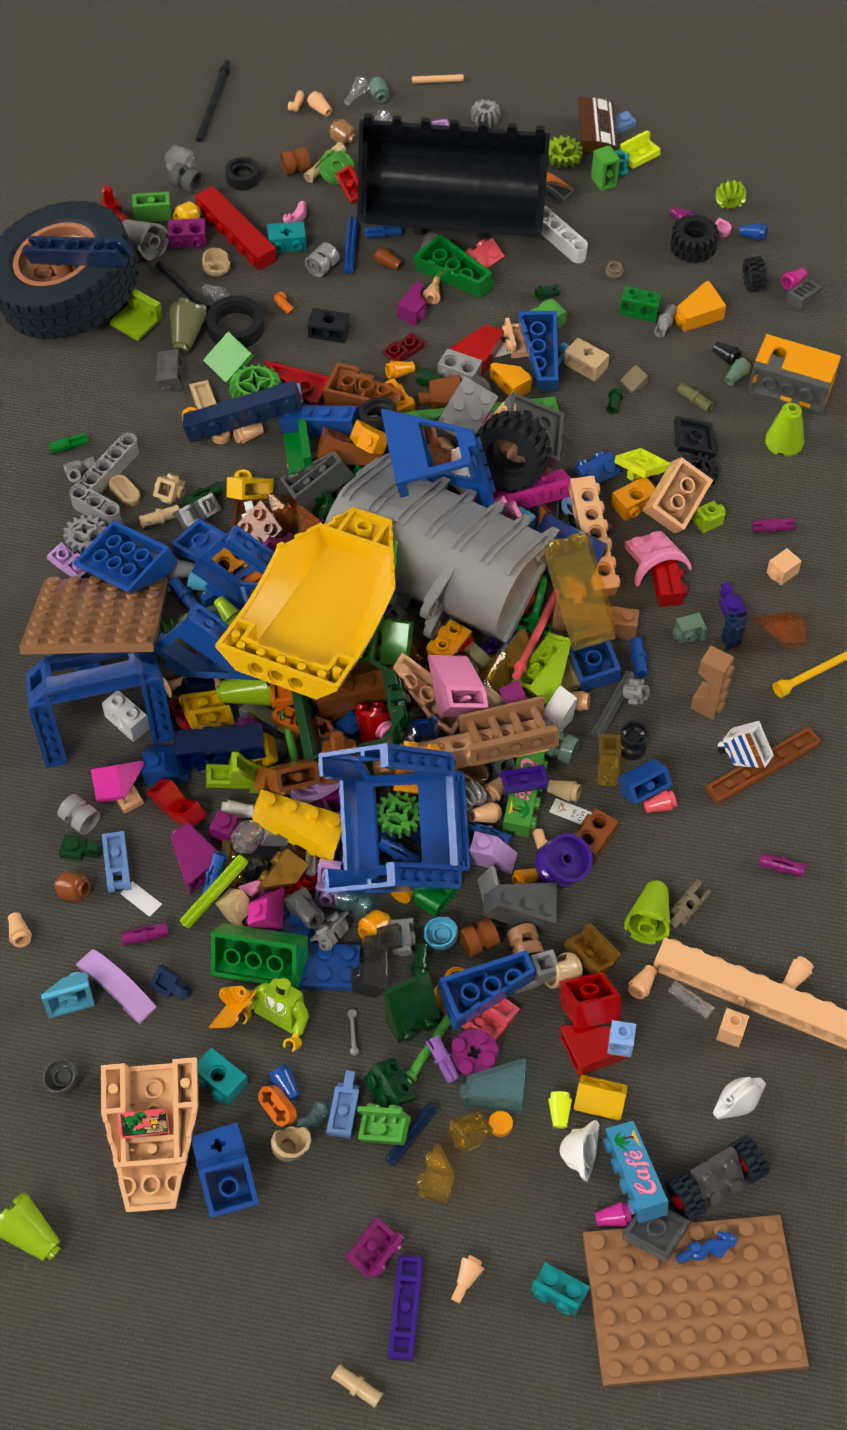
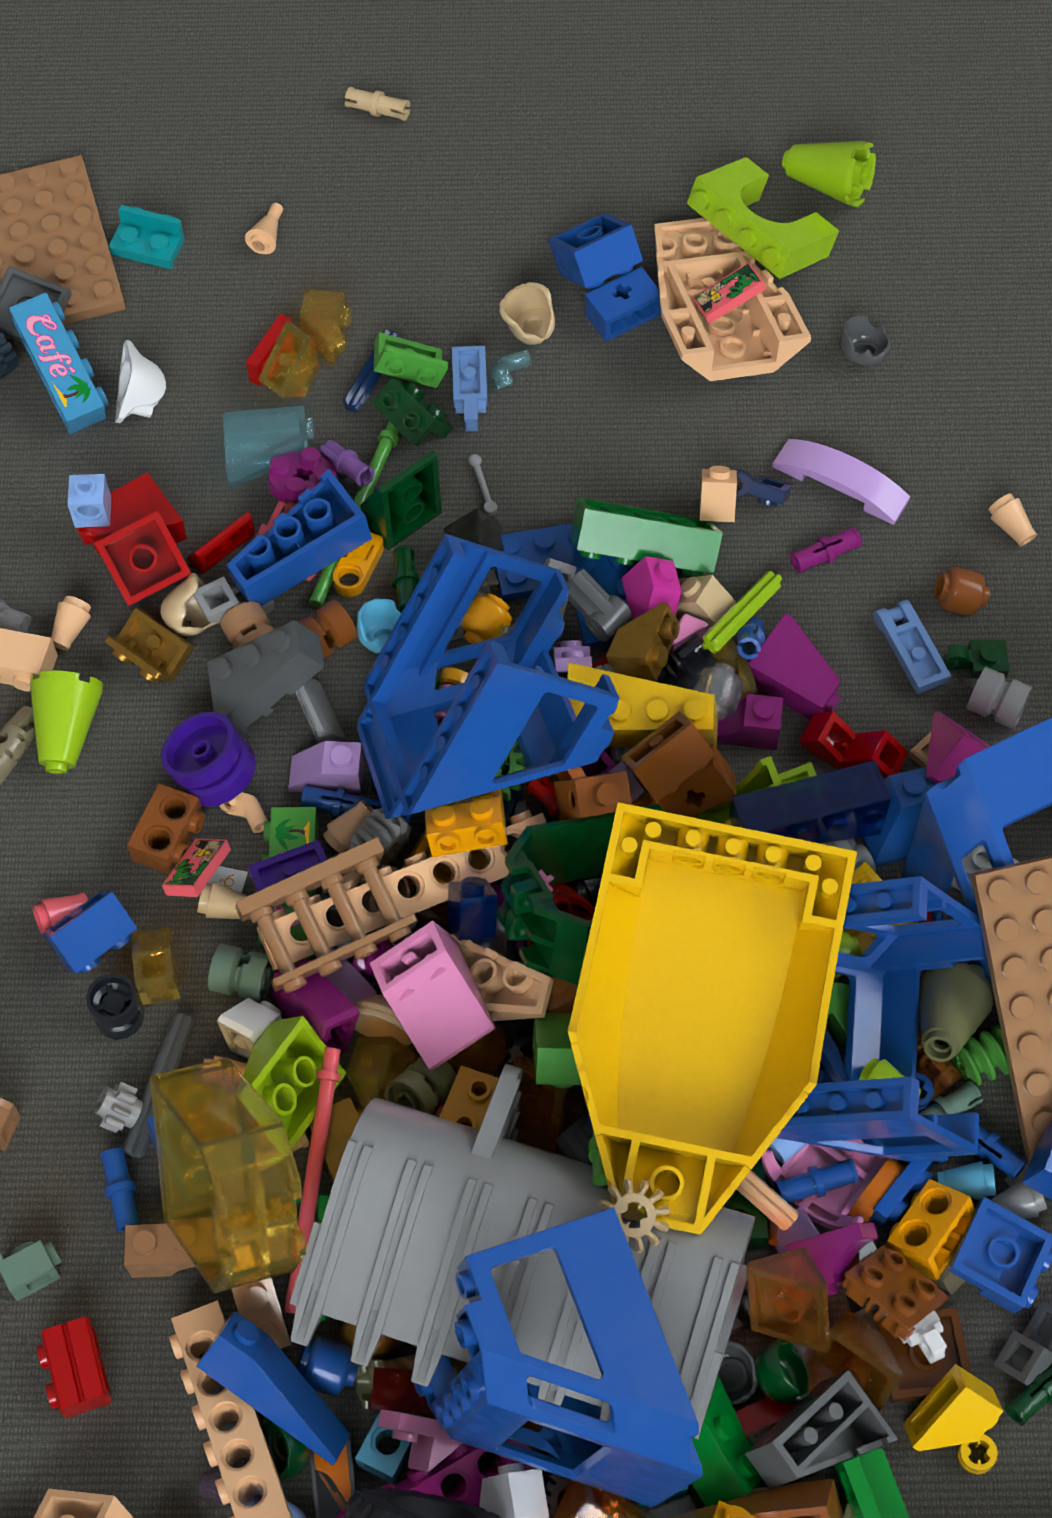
camera: 170 degrees right, 5 degrees up
(68, 995) = (893, 435): medium azure slope -> none
(121, 1208) = (780, 247): none -> lime arch
(141, 899) = (850, 608): white sticker -> none
(202, 977) = (718, 494): none -> light nougat brick
(230, 1086) = (660, 398): teal brick -> none
(236, 1000) = (660, 461): light orange hinge -> none
(237, 808) = (747, 759): white cone -> none
(277, 1106) = (560, 365): orange beam -> none
(282, 1006) = (595, 474): lime torso -> none
(285, 1081) = (561, 398): blue cone -> none
(374, 1248) = (387, 232): magenta bracket -> none
(384, 509) = (645, 1224): none -> tan gear
(405, 1308) = (336, 186): dark purple plate -> none
(474, 1168) = (259, 357): none -> red plate
(501, 1123) = (251, 401): light orange tile -> none
(525, 876) = (269, 741): light orange cone -> none
(537, 1021) = (223, 543): none -> red slope
(560, 1108) = (172, 436): neon yellow cone -> none
(578, 806) = (196, 867): none -> tile
(600, 1097) = (116, 461): yellow panel -> none
(615, 1215) = (87, 324): dark pink cone -> none
(652, 550) = (107, 1431): bright pink piece -> none

